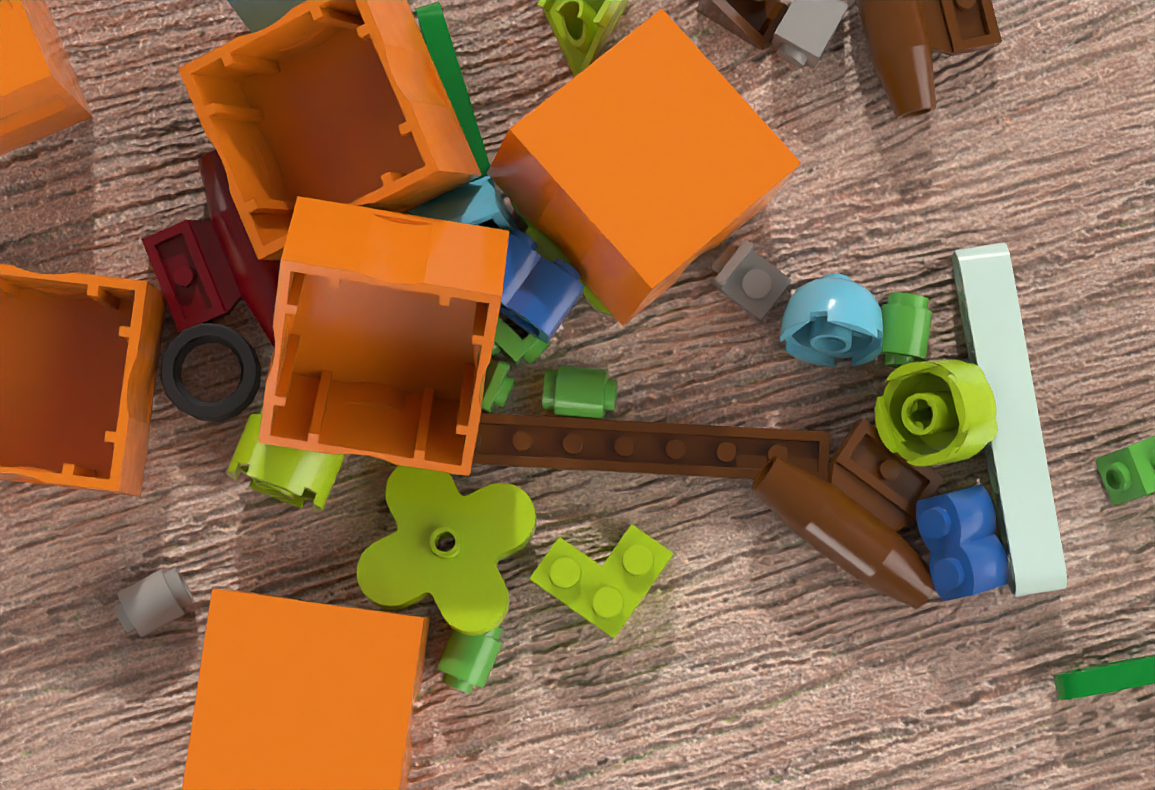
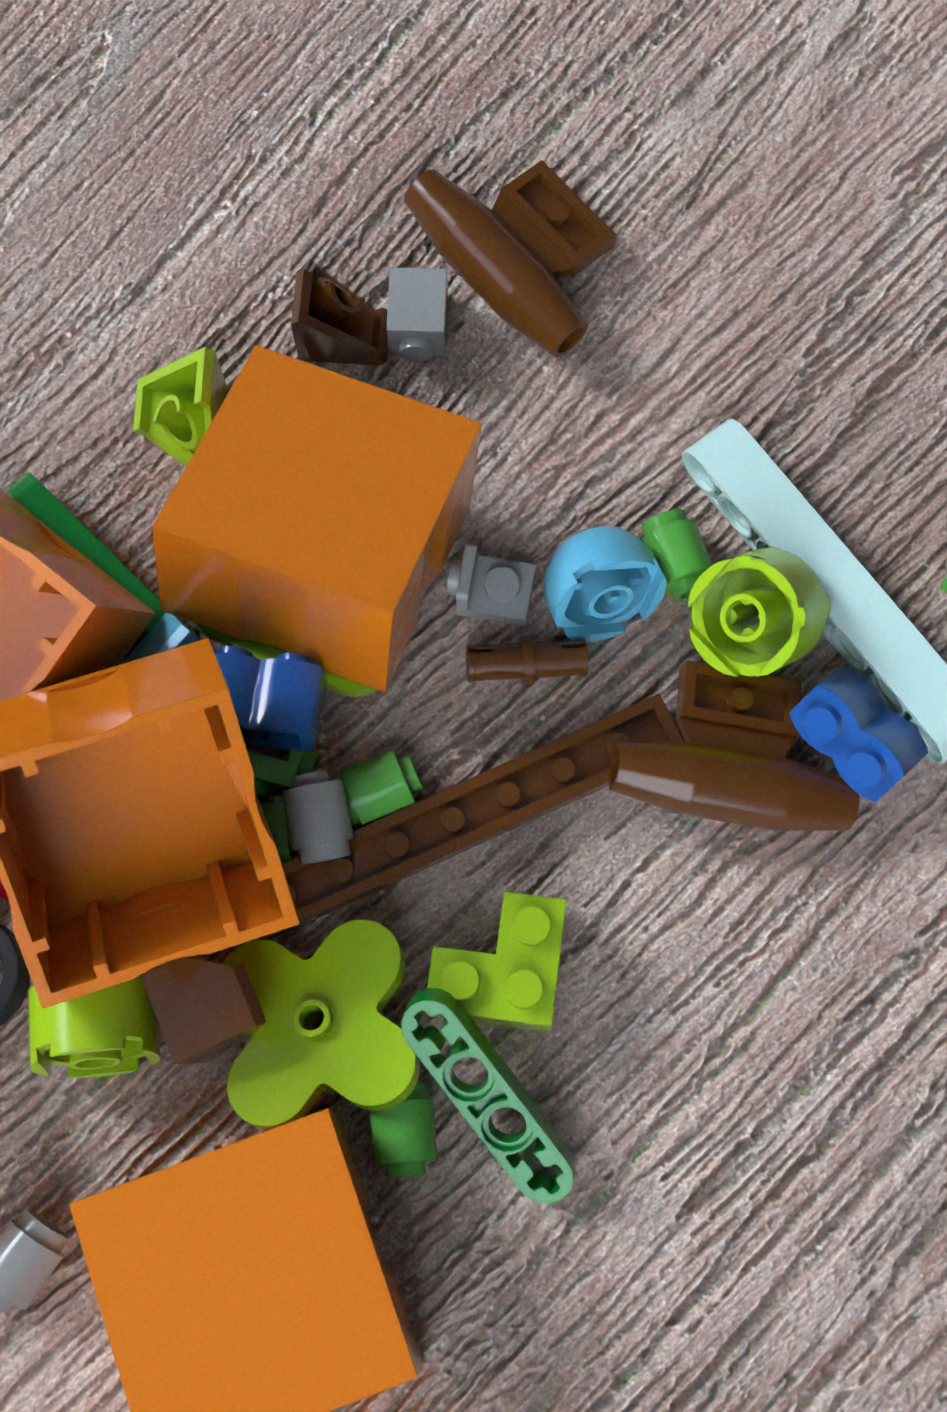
camera: 25 degrees left, 10 degrees down
(371, 494) = (202, 1007): none -> reddish brown slope
(524, 396) = (318, 817): none -> light grey brick
(537, 663) = (497, 1091): none -> green beam
(744, 352) = (526, 660): none -> reddish brown pin

